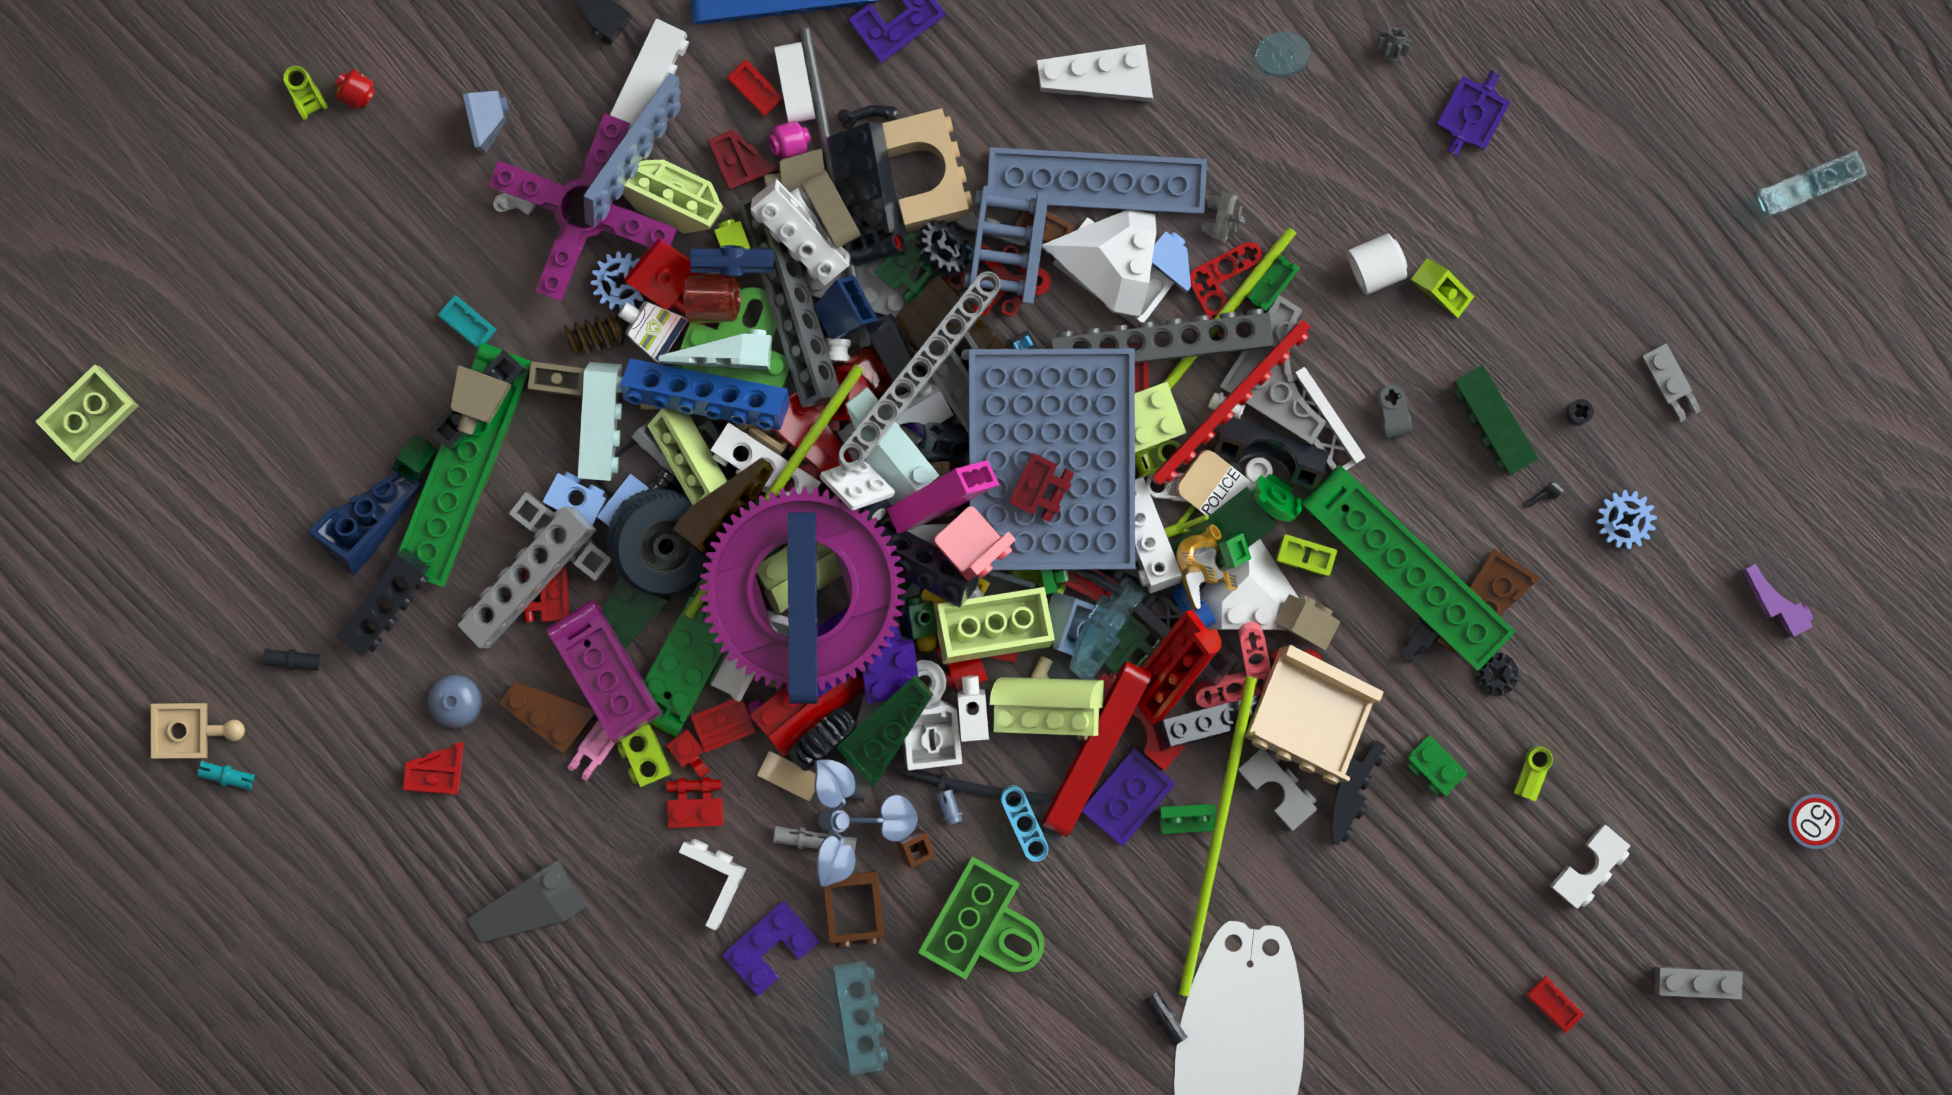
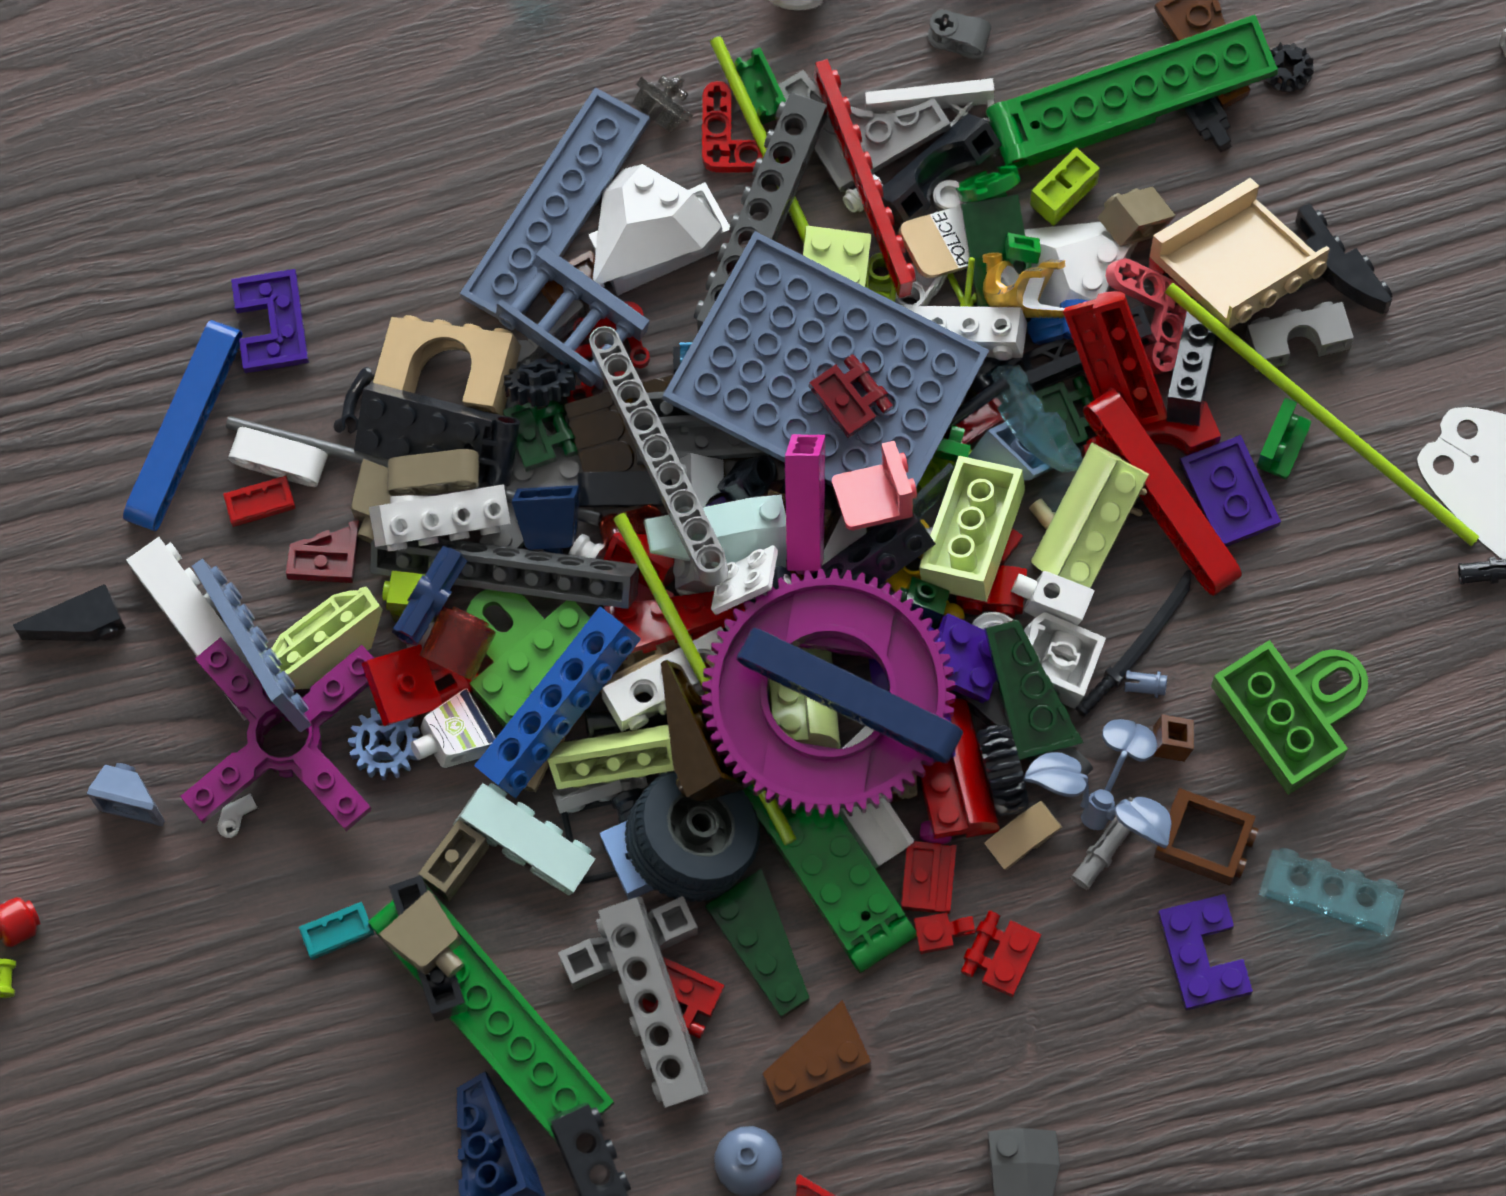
camera: 60 degrees left, 15 degrees down
(414, 459) = (454, 1062): dark green brick -> none
(564, 486) = (573, 908): light blue brick -> none
(595, 334) = (425, 797): dark brown piece -> none
(596, 747) = (877, 1019): bright pink hinge -> none
(604, 671) = (803, 967): magenta hinge -> none
(651, 752) = (920, 969): lime brick -> none
(722, 862) = (1112, 950): white bracket -> none
(738, 351) = (533, 639): light aqua wedge -> none
(788, 140) = (334, 492): dark pink head -> none
(1029, 835) = (1216, 602): medium azure beam -> none
(1105, 73) = (450, 141): white wedge -> none
(1172, 260) = (685, 167): light blue slope -> none
(1435, 766) = (1355, 171): green bracket -> none
(1533, 776) = (1414, 79): lime piece -> none

